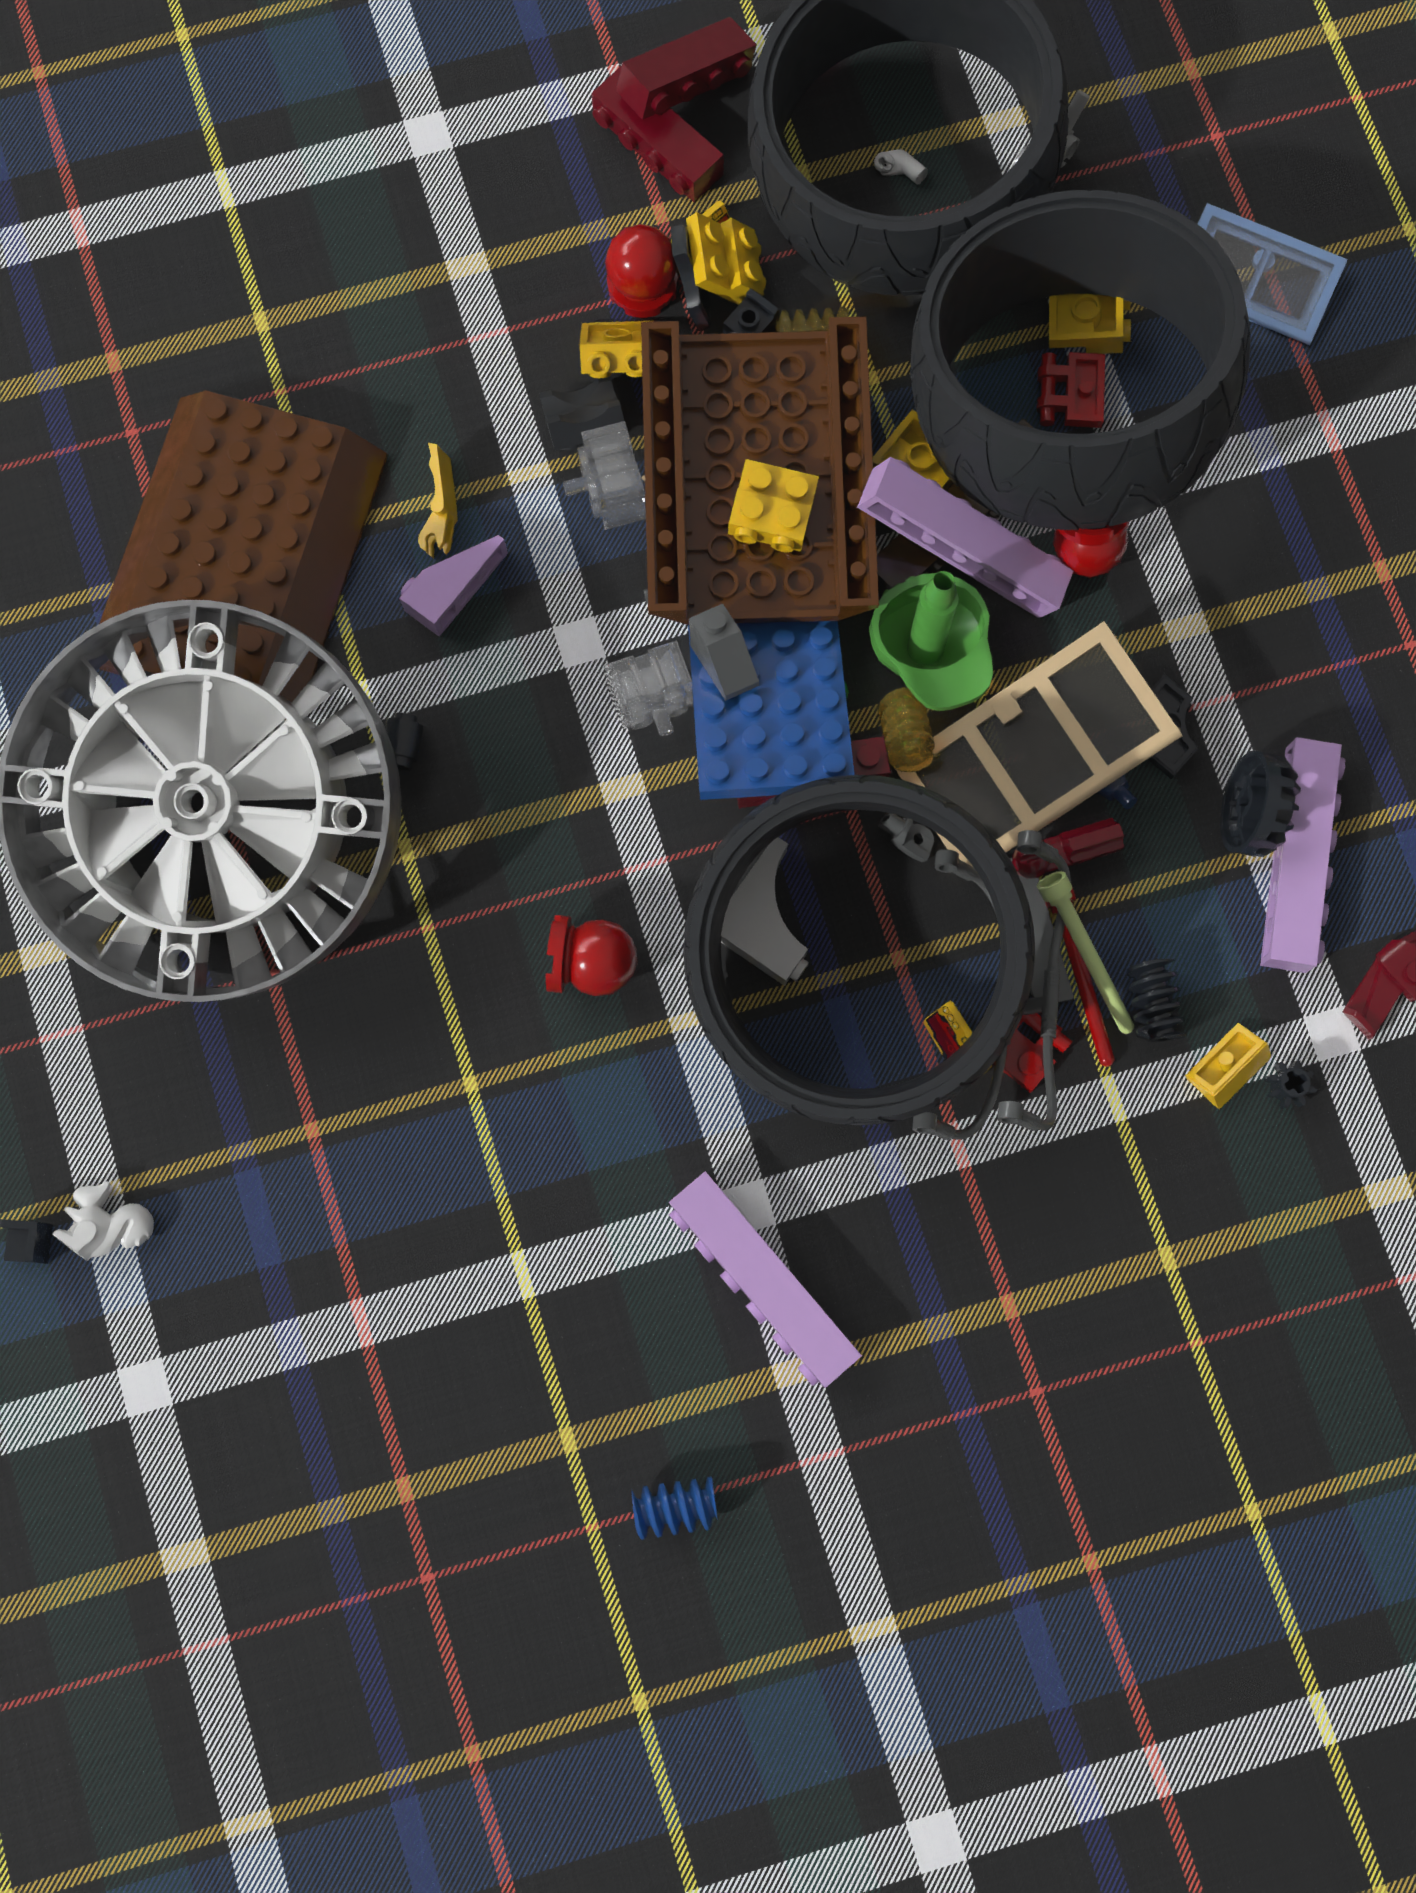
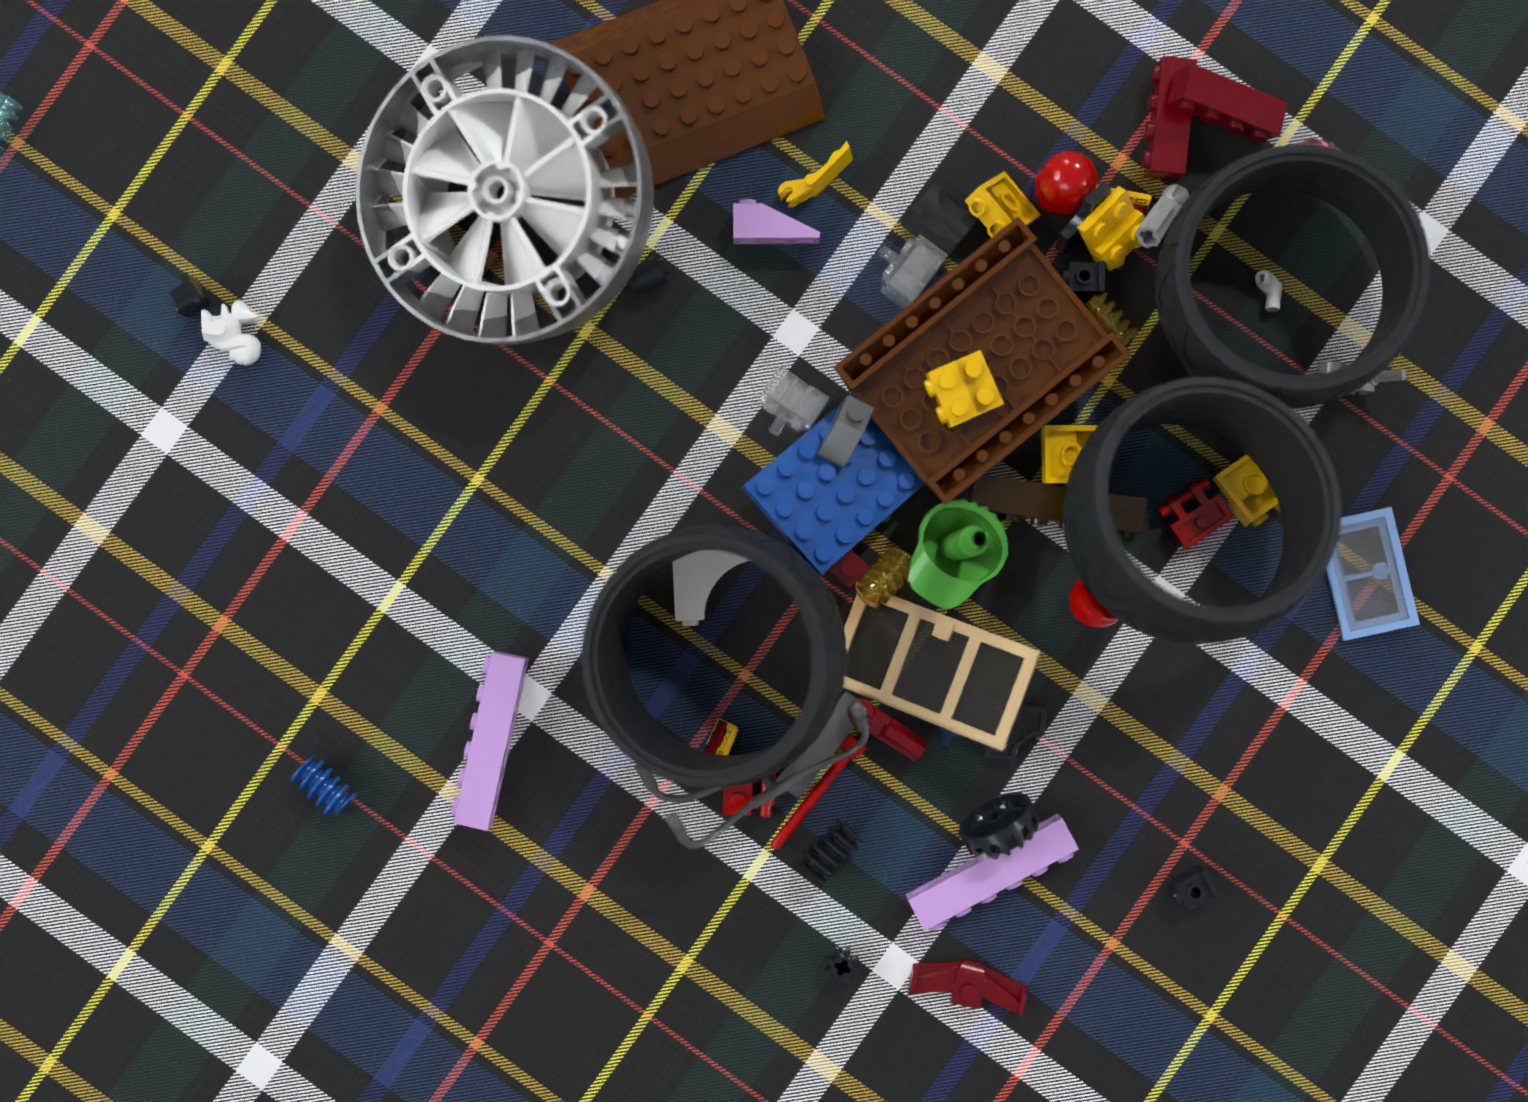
camera: 50 degrees right, 10 degrees up
(592, 957) = (600, 495): red tile -> none
(748, 203) = (1161, 215): none -> light grey piece
(965, 537) = (1034, 523): lavender brick -> none
(1057, 891) = (844, 746): yellowish green piece -> none
(1229, 1065) = (828, 919): yellow slope -> none

